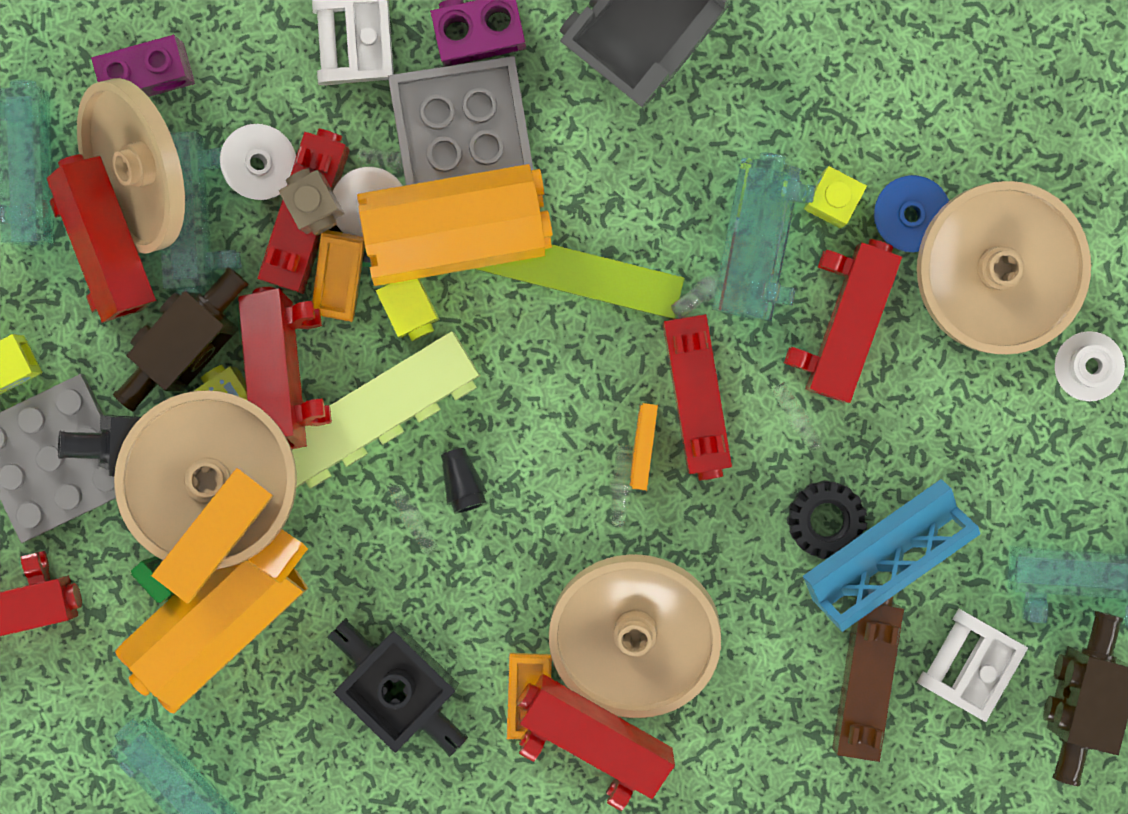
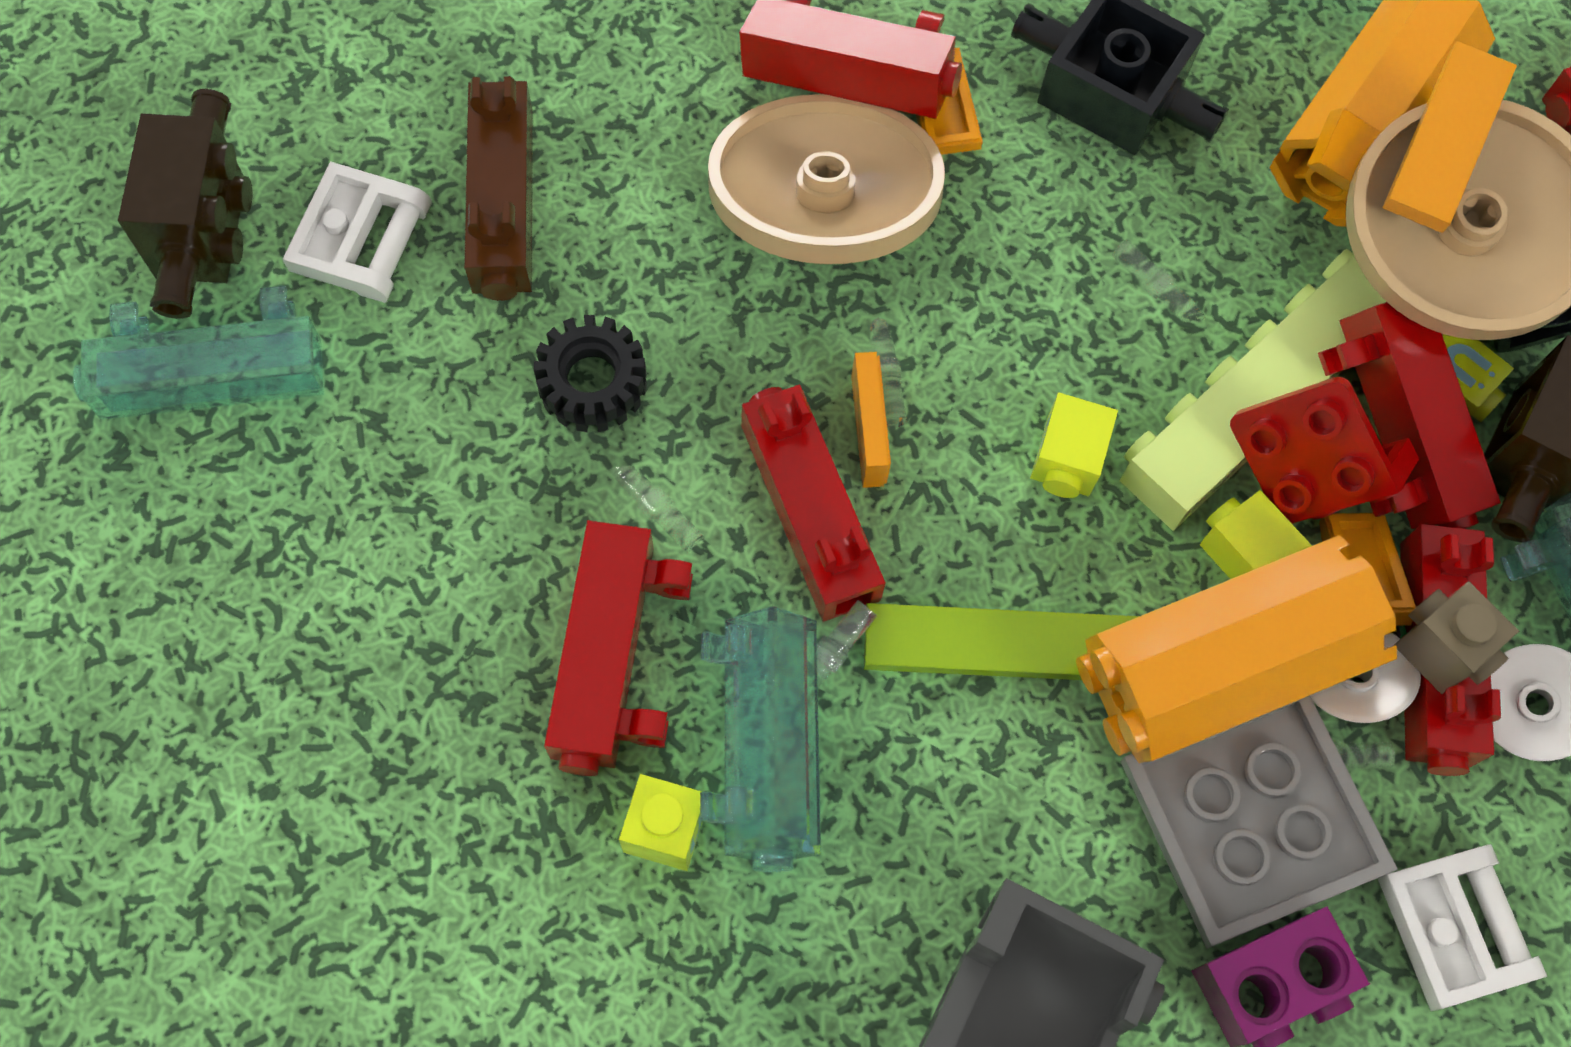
camera: 165 degrees right, 20 degrees down
(358, 338) = (1320, 451): none -> red bracket
(462, 482) = (1106, 332): black cone -> none
(510, 398) = (1073, 446): none -> neon yellow brick
(883, 551) = (507, 347): dark azure fence -> none
(906, 192) = (519, 799): blue piece -> none
(1004, 267) = (382, 766): tan dish -> none
(1071, 366) = (247, 678): white piece -> none

